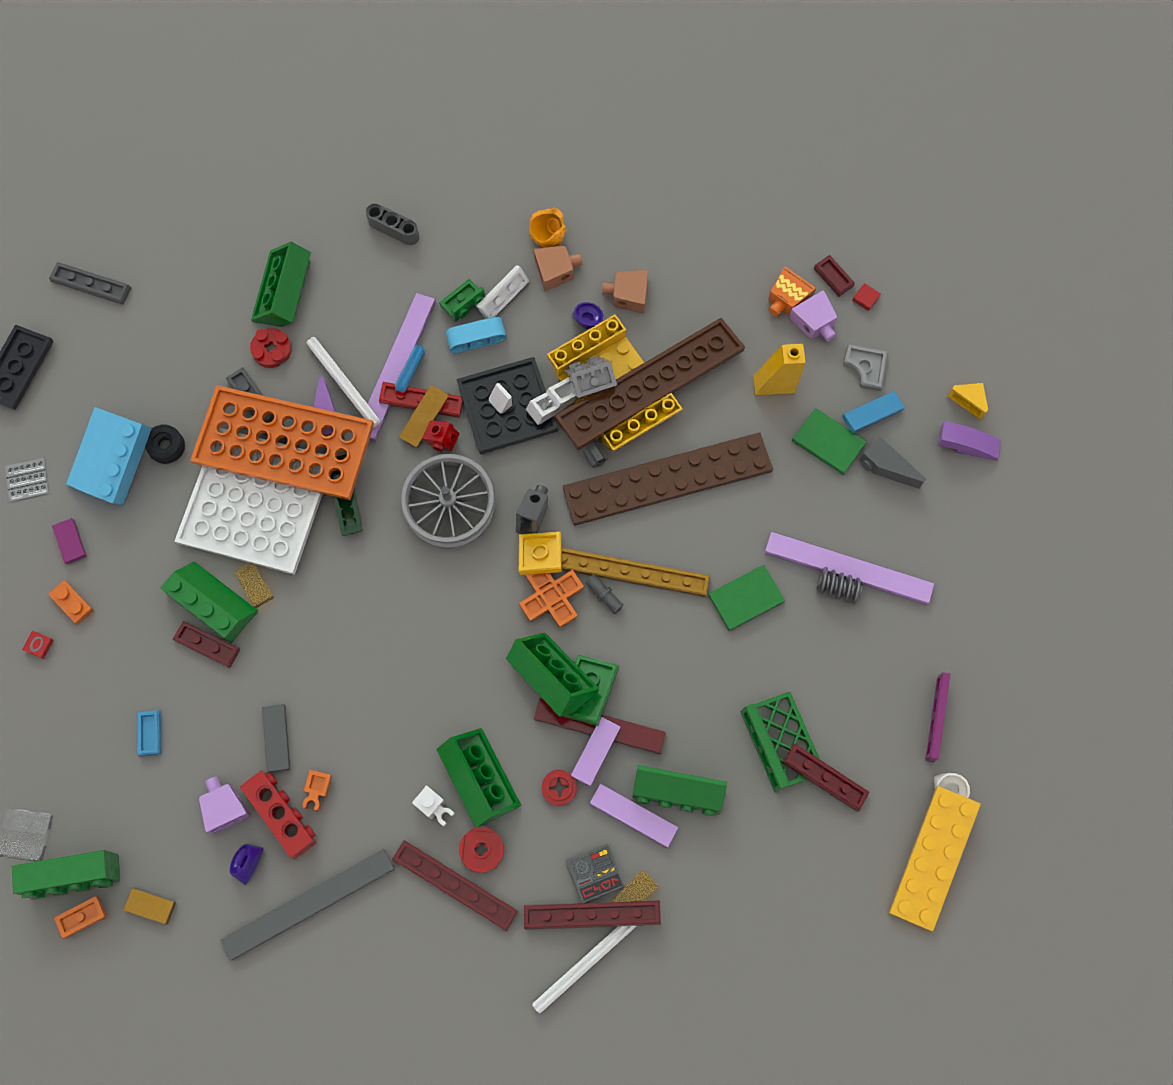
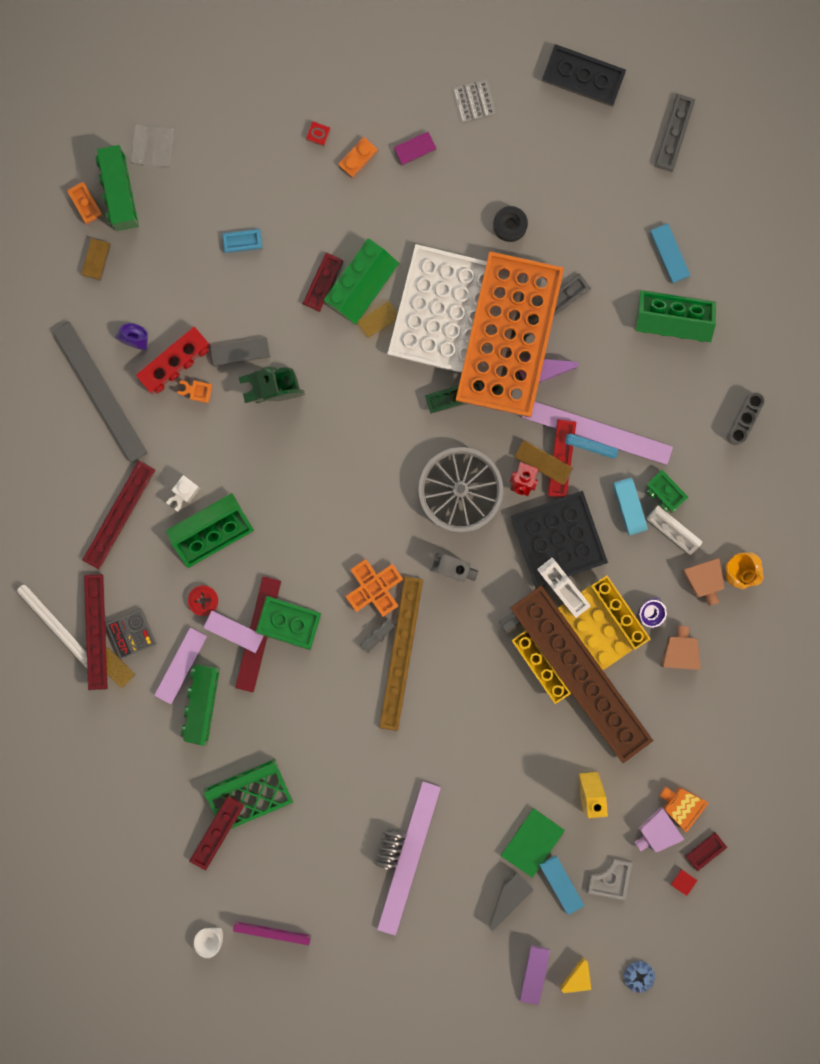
camera: 85 degrees right, 15 degrees up
(108, 456) = (494, 174): medium azure slope -> none
(215, 291) = (670, 253): none -> dark azure tile
(221, 806) = (179, 311): lavender torso -> none
(265, 338) = (620, 305): red plate -> none
(316, 700) = (271, 386): none -> dark green piece
(342, 381) = (577, 383): white axle -> none
(473, 839) = (155, 544): red plate -> none
(500, 399) = (560, 532): white slope -> none
(540, 553) = (413, 576): yellow tile -> none
(551, 673) = (300, 591): green slope -> none
(591, 376) = (584, 617): light grey bracket -> none
(667, 478) = (491, 691): reddish brown plate -> none
(746, 597) = (378, 764): green tile -> none
(934, 858) = (149, 925): yellow plate -> none
(965, 349) = (642, 968): none -> medium blue gear

